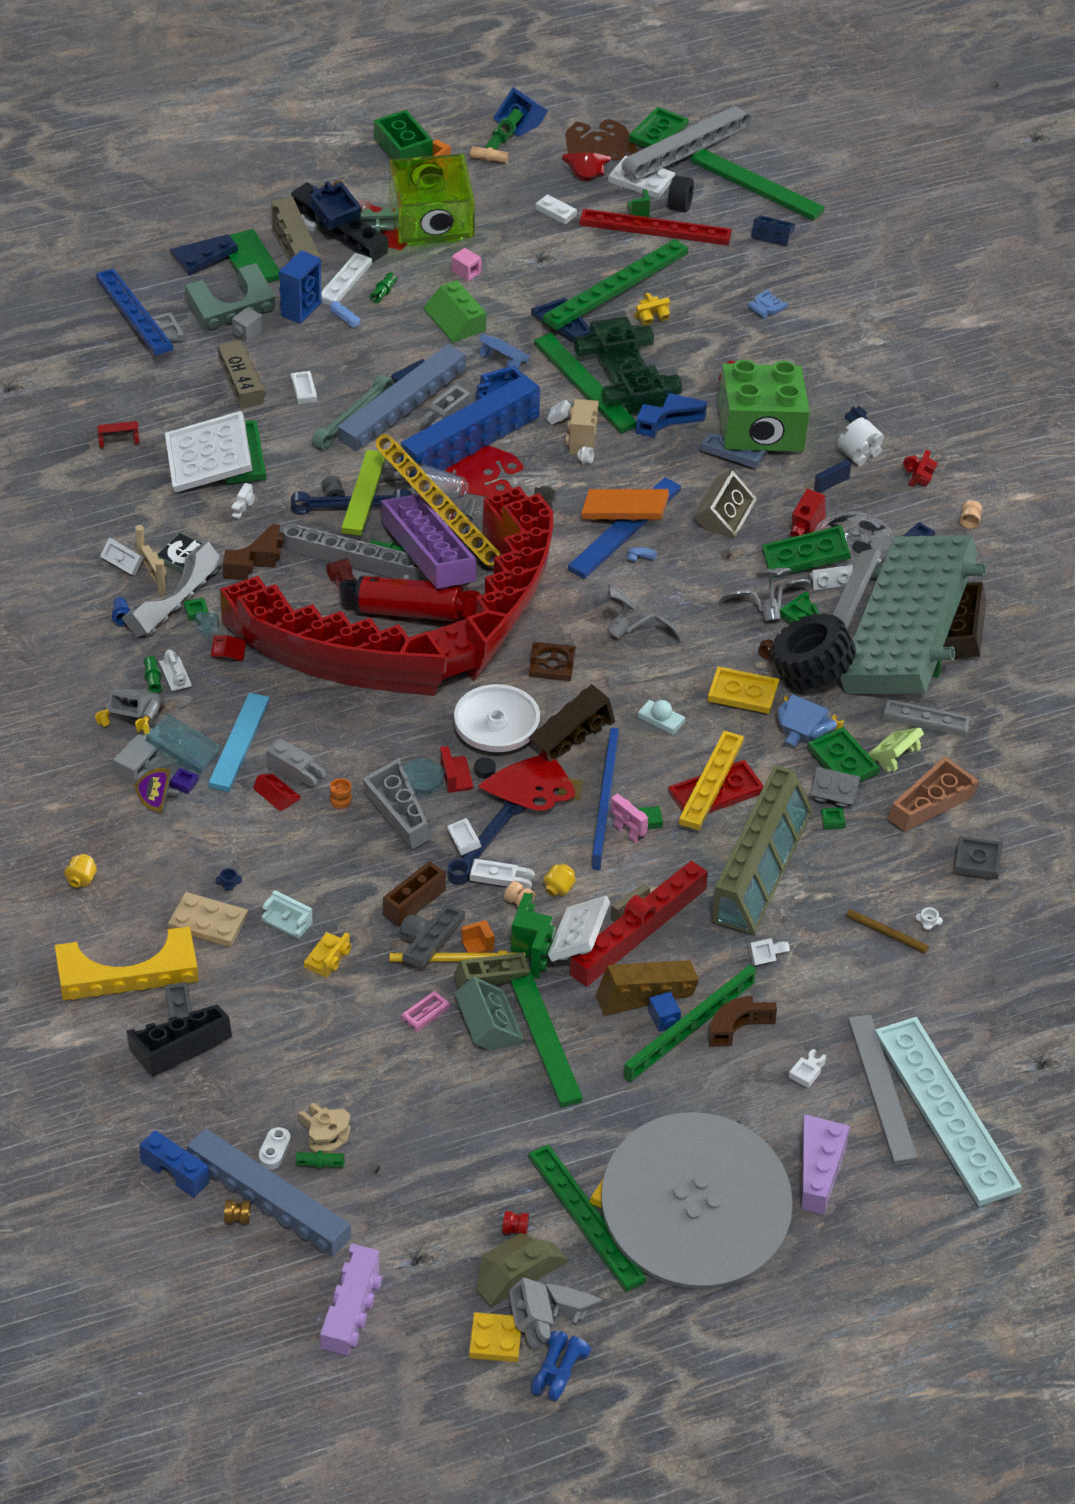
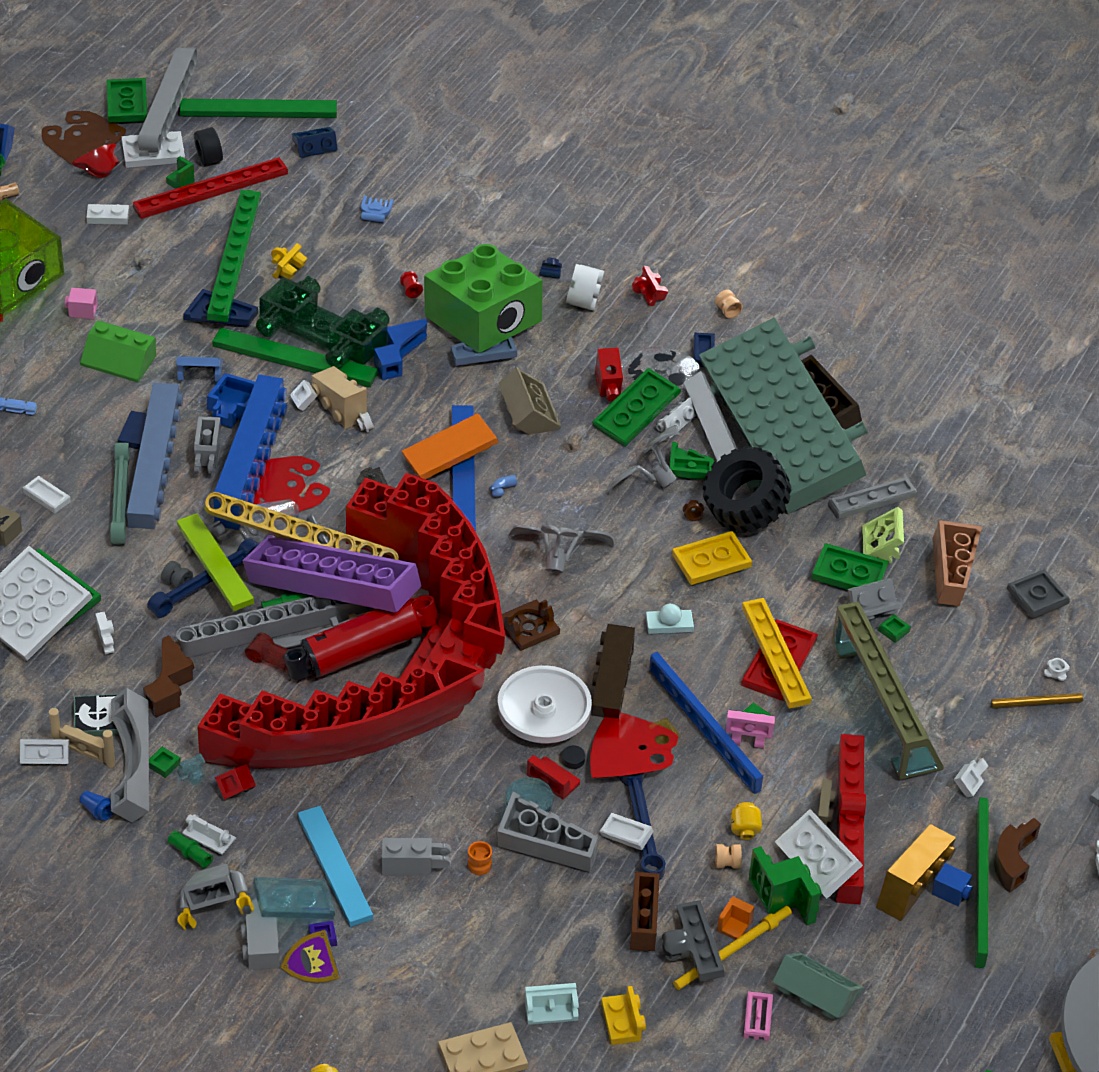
camera: 40 degrees left, 0 degrees up
(228, 878) = (462, 998): dark blue plate -> none
(275, 791) = (415, 893): red slope -> none
(383, 287) = (27, 363): green pin -> none
(492, 969) = (781, 942): olive slope -> none
(500, 873) = (690, 846): white hinge -> none
(546, 1041) = (875, 971): green tile -> none
(804, 720) = (789, 555): medium blue torso -> none
(832, 476) = (587, 330): dark blue tile -> none

